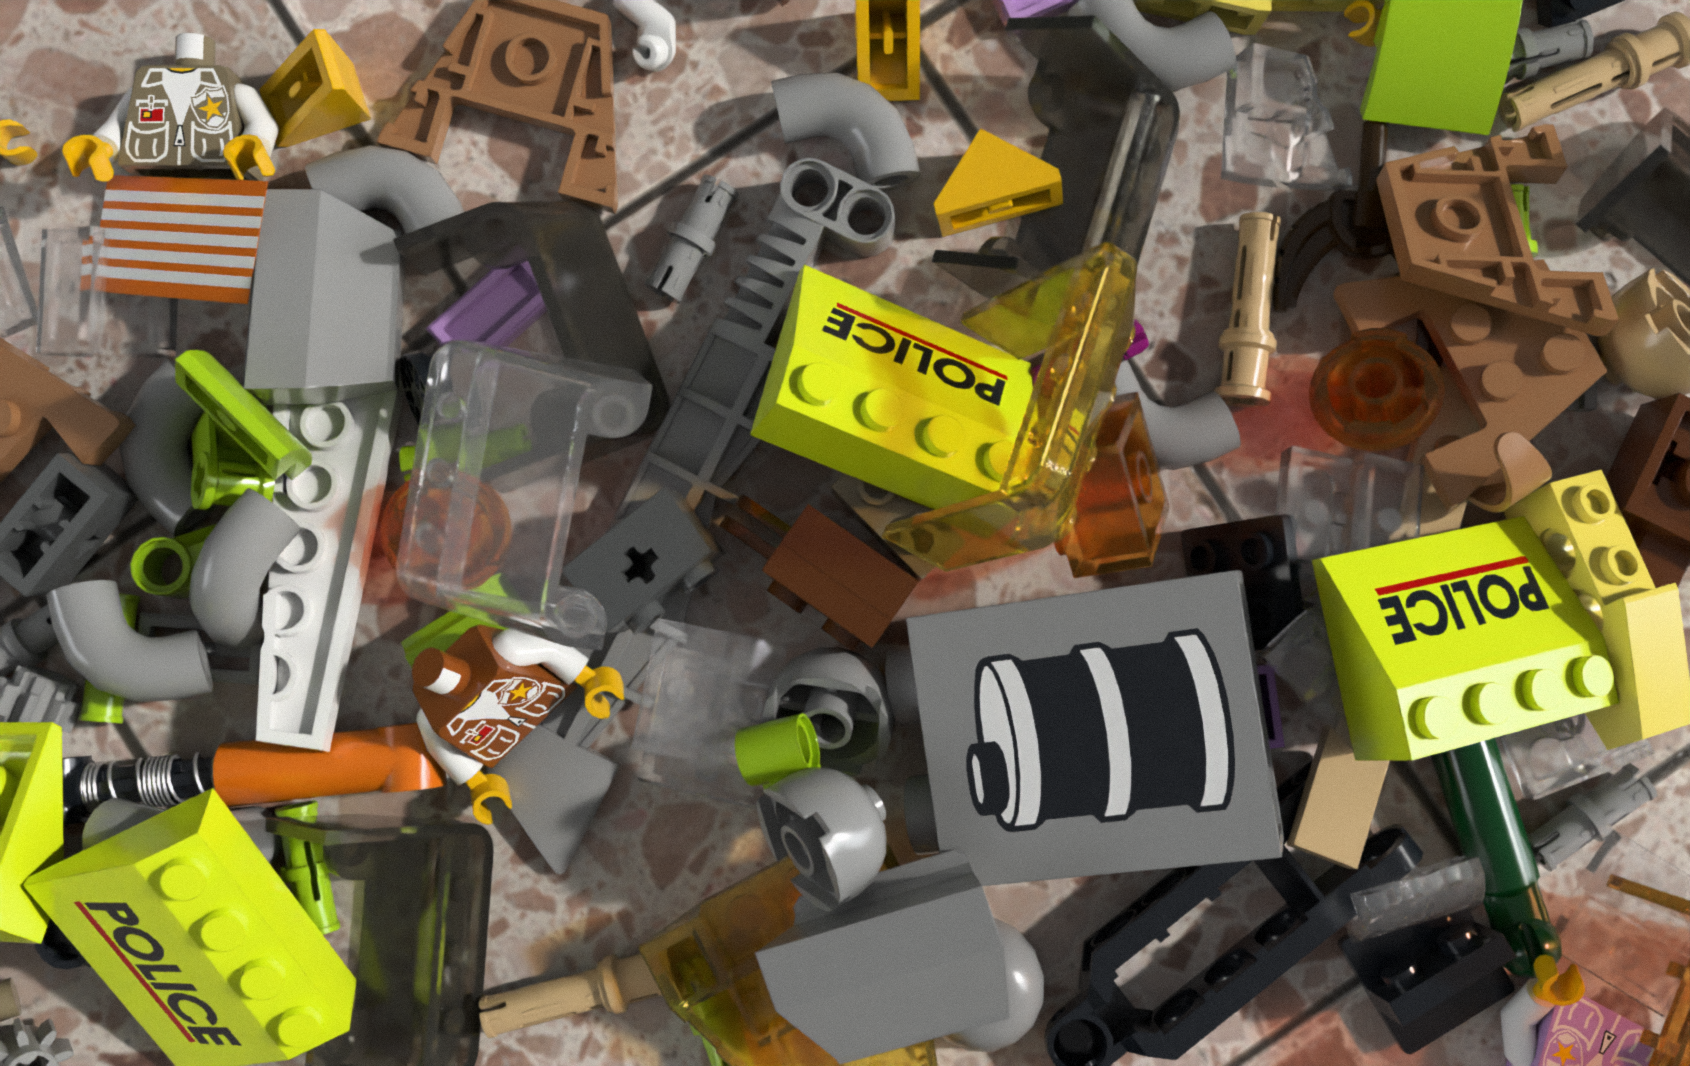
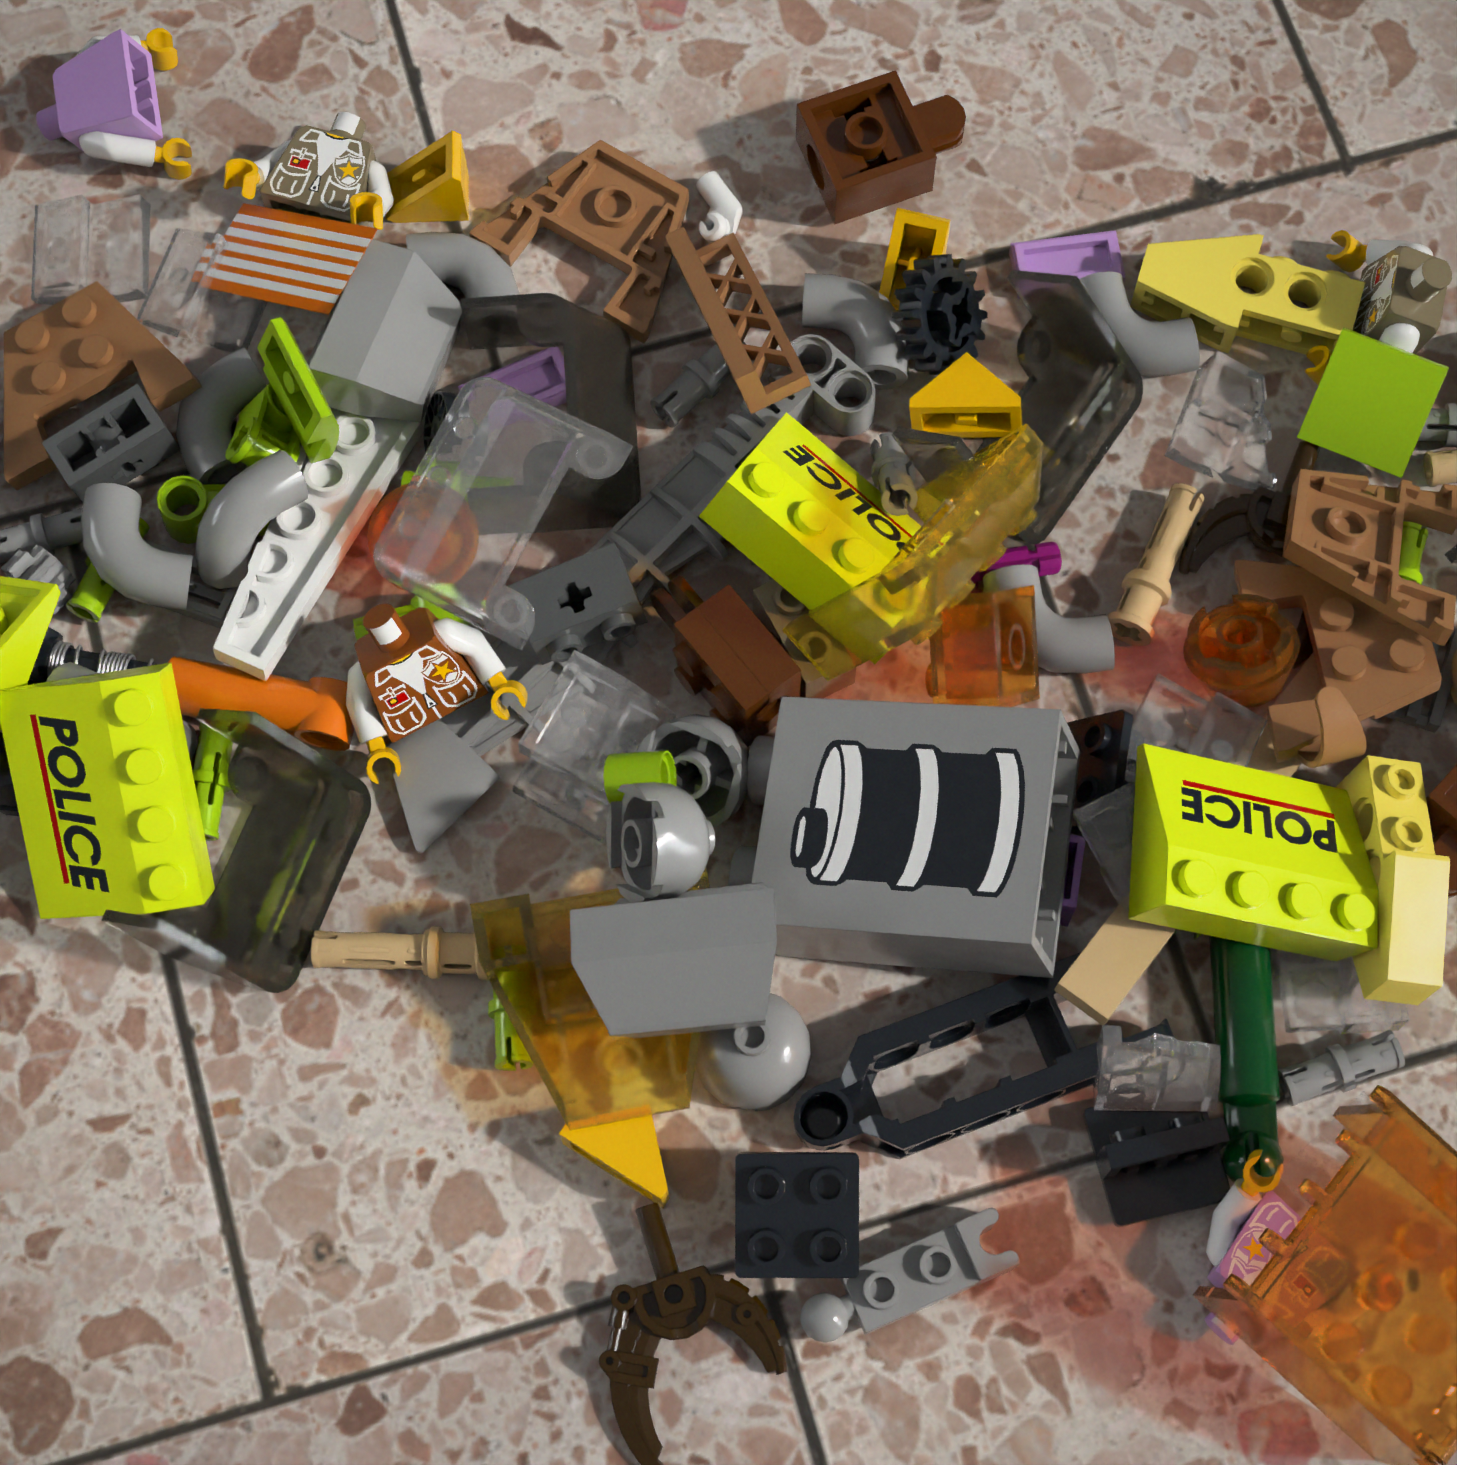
camera: 20 degrees right, 15 degrees down
(691, 169) = (721, 319): none -> medium nougat fence
(936, 90) = (939, 312): none -> black gear
(942, 300) = (893, 475): none -> light grey pin

